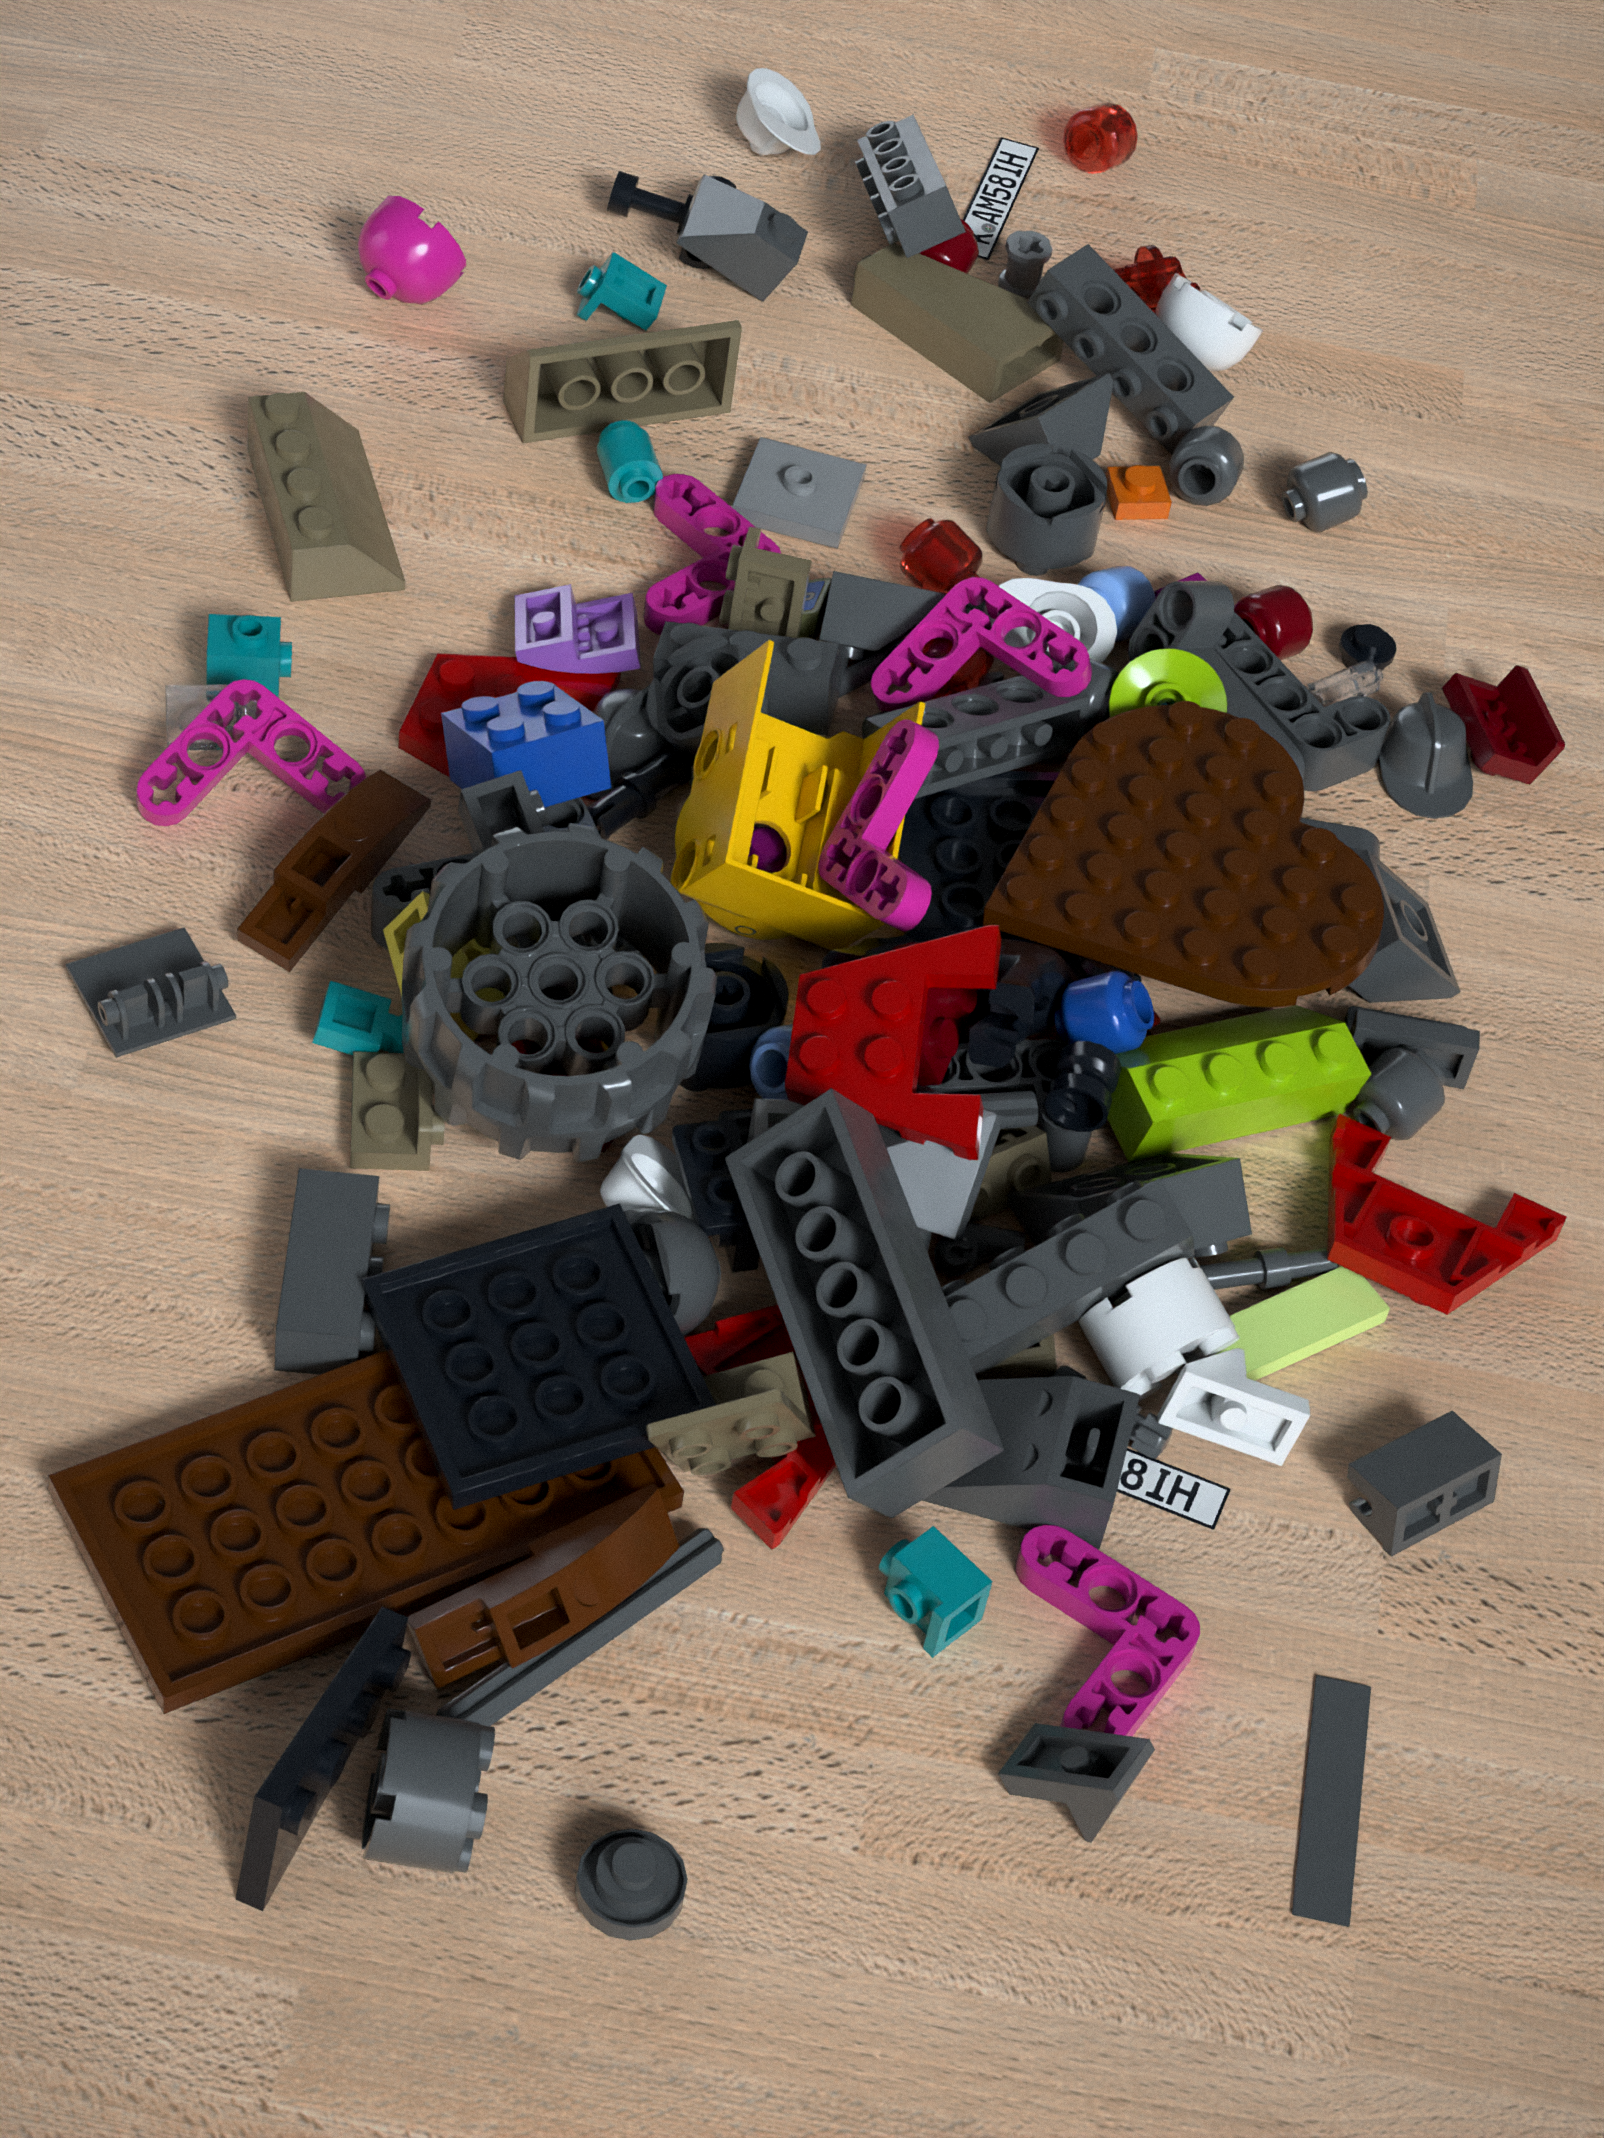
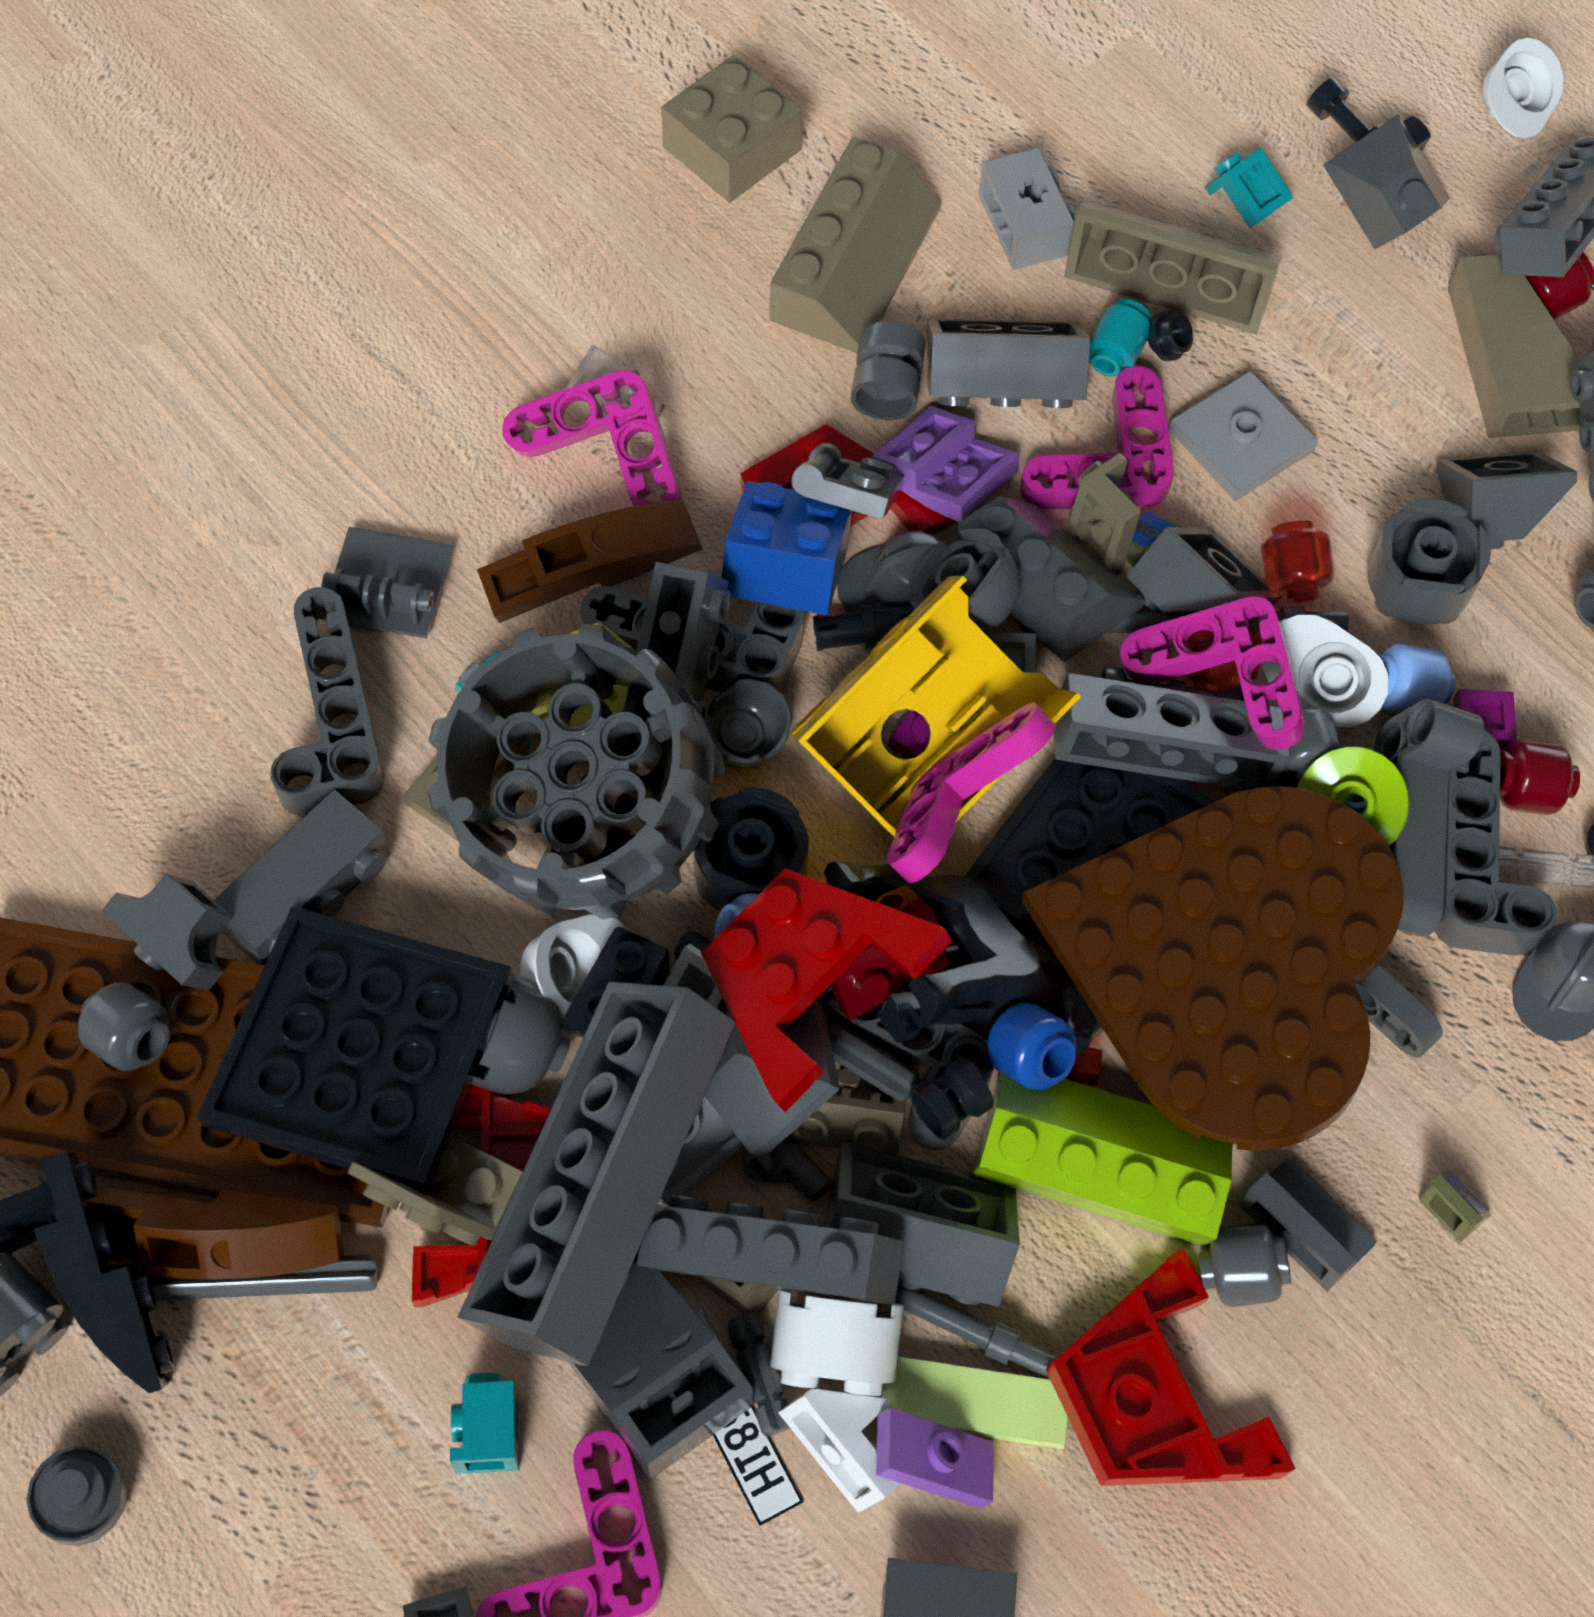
camera: 45 degrees right, 15 degrees up
(110, 450) = (731, 128): none -> dark tan brick
(221, 1107) = (331, 698): none -> dark grey beam
(247, 650) = (679, 350): teal brick -> none
(269, 1360) = (174, 929): none -> dark grey brick
(303, 1467) = (124, 1026): none -> dark grey head
(406, 255) = (1093, 72): dark pink cylinder -> none
(446, 396) = (1026, 208): none -> light grey brick
(456, 580) = (888, 370): none -> dark grey wheel
(467, 1679) = (105, 1303): none -> black slope
(538, 667) = (856, 486): none -> dark grey plate
(551, 525) = (1007, 361): none -> dark grey slope
(668, 440) = (1170, 335): none -> black plate
(1137, 492) = (1539, 588): orange plate -> none
(1311, 1370) = (934, 1458): none -> medium lavender plate
(1410, 950) = (1385, 1128): dark grey slope -> none
(1499, 965) = (1453, 1205): none -> olive slope

